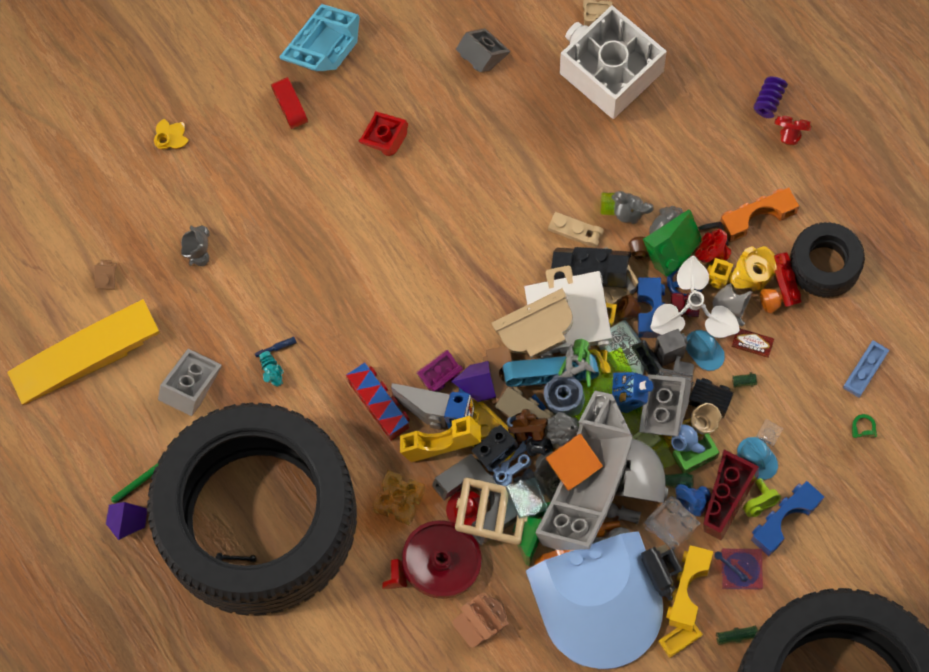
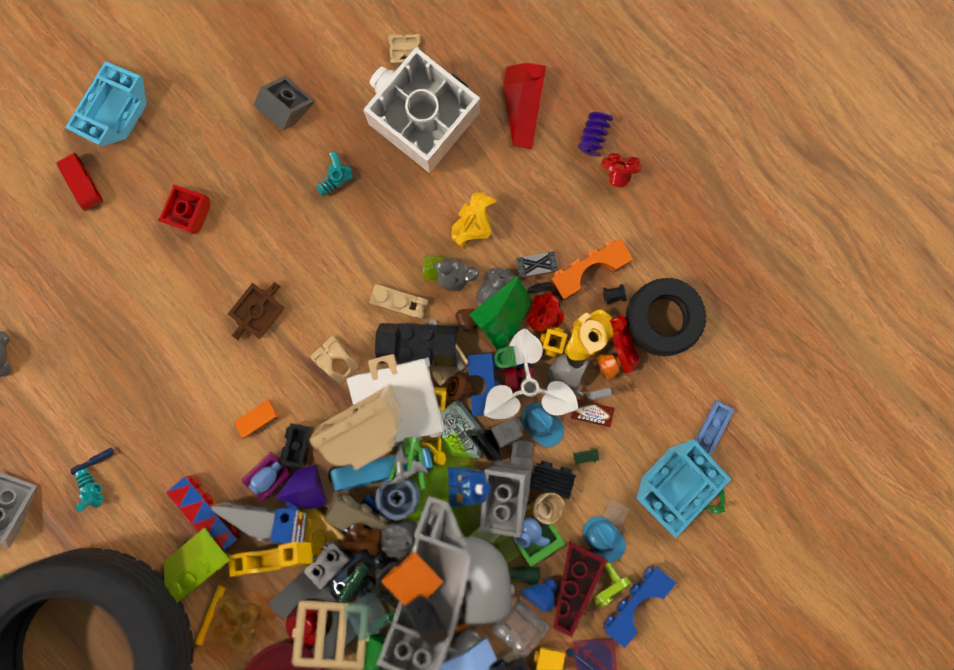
camera: 10 degrees left, 15 degrees up
(367, 441) = (193, 565): none -> lime slope
(377, 488) = (209, 615): none -> yellow bar
(433, 322) = (256, 419): none -> orange slope
(439, 370) = (264, 478): none -> medium blue plant
(442, 226) = (256, 310): none -> reddish brown plate
(472, 344) = (297, 445): none -> black brick
(505, 269) = (333, 350): none -> tan piece
(515, 468) = (353, 583): none -> clear green pin
(525, 117) = (336, 177): none -> teal piece
(586, 492) = (426, 621): none -> black brick
(651, 161) = (473, 221): none -> yellow piece
(674, 281) = (505, 357): none -> green tile
(704, 62) = (523, 94): none -> red wedge
(708, 207) = (537, 264): none -> tile
(759, 321) = (598, 394): none -> light grey tile
(780, 238) = (614, 294): none -> black bush
(835, 411) = (681, 485): none -> medium azure slope

